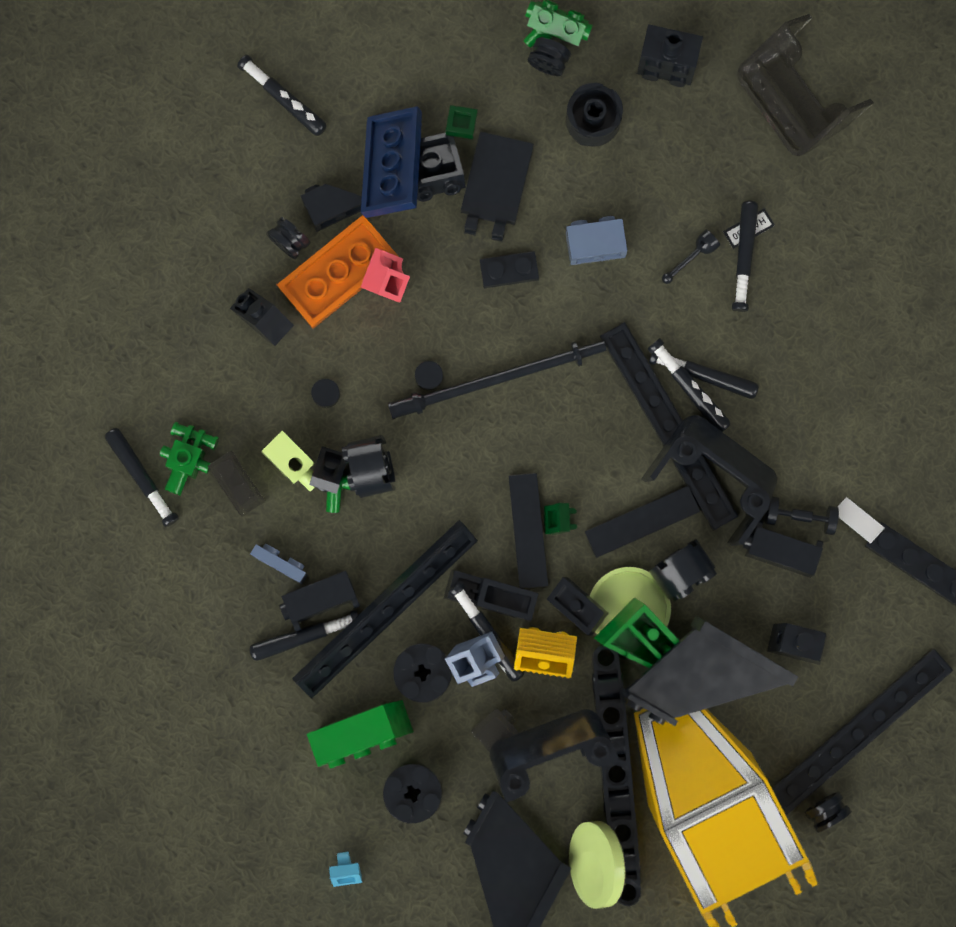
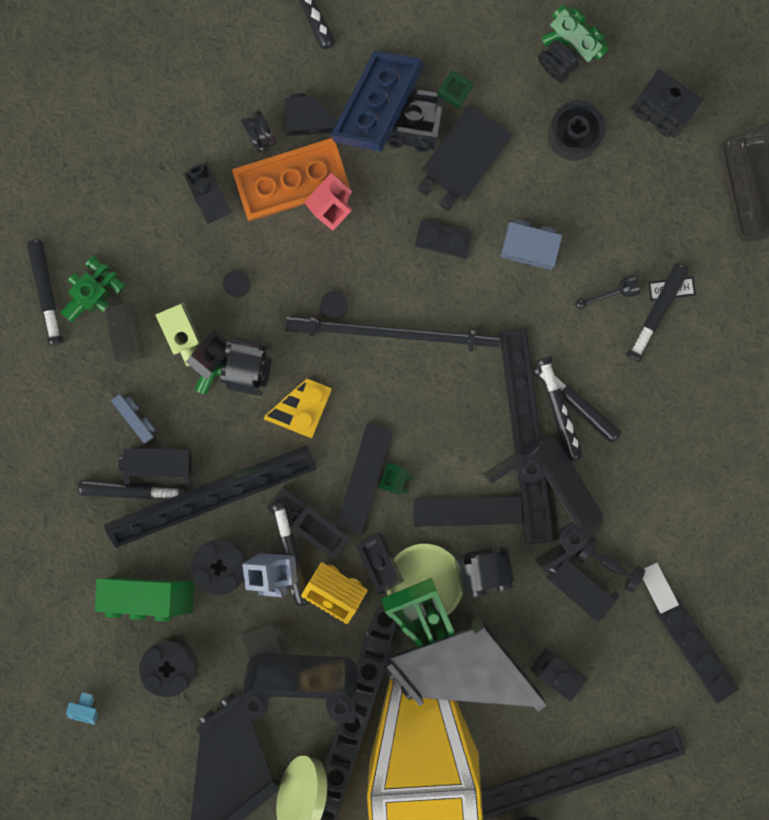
camera: 15 degrees right, 5 degrees up
(439, 488) = (301, 408): none -> yellow wing

